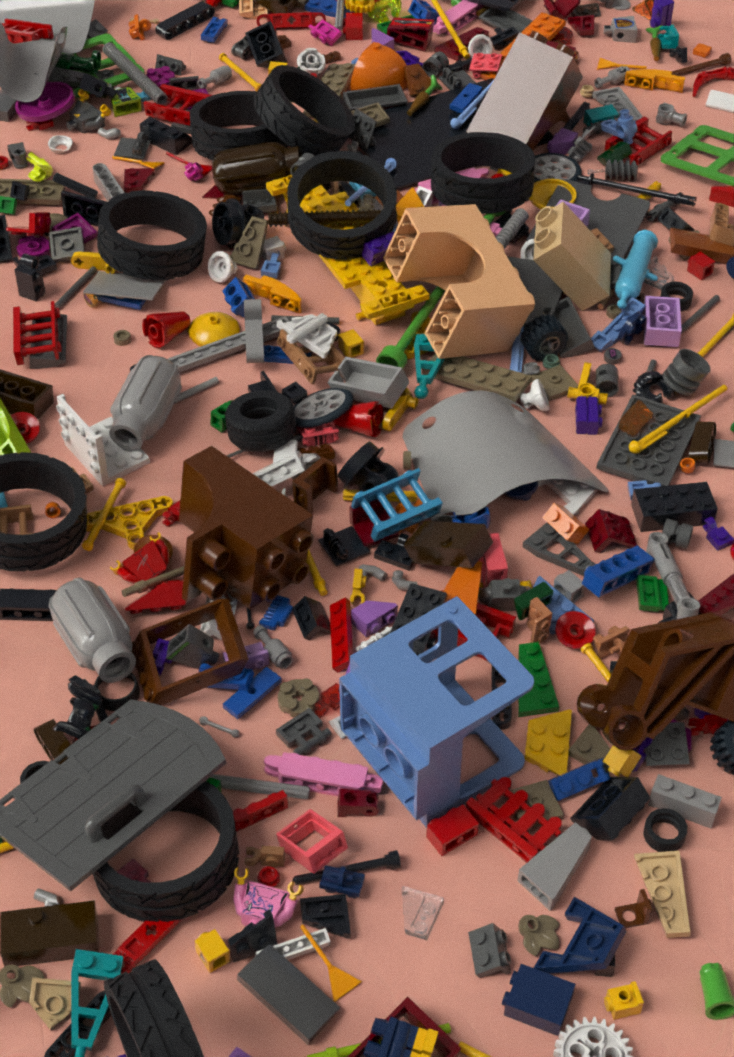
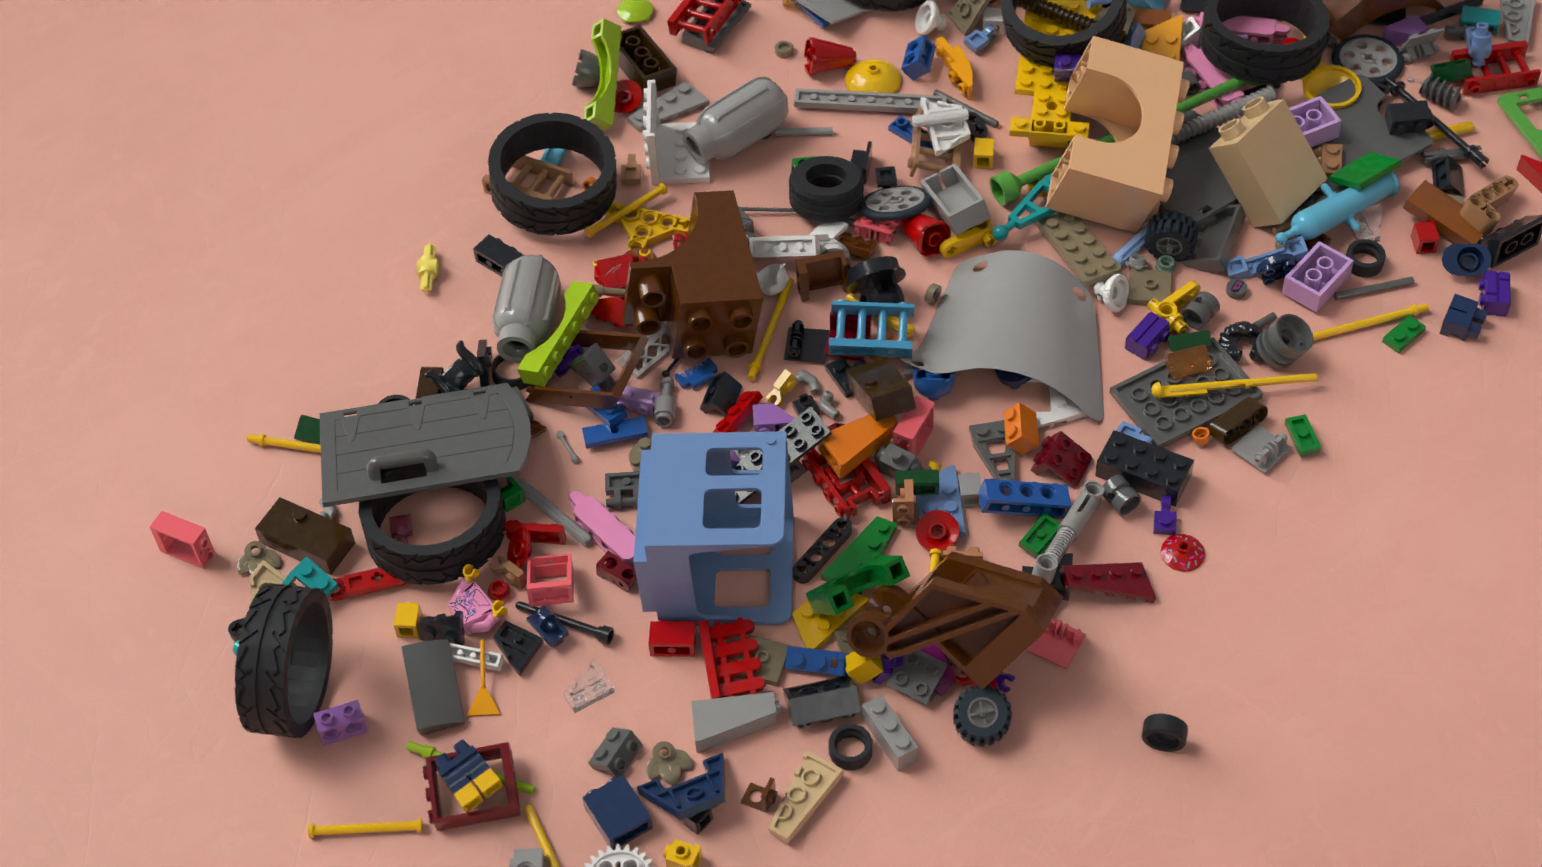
camera: 40 degrees right, 5 degrees up
(51, 436) = (671, 104): none -> light grey wing
(149, 666) = (541, 362): none -> lime arch
(253, 331) = (896, 99): light grey beam -> none
(259, 829) = (519, 547): none -> red dish
(387, 592) = (803, 403): none -> black tile
(556, 715) = (836, 594): none -> green arch
(620, 404) = (1189, 340): none -> dark green slope
(623, 192) = (1408, 117): none -> black hinge
(631, 237) = (1365, 170): none -> green tile

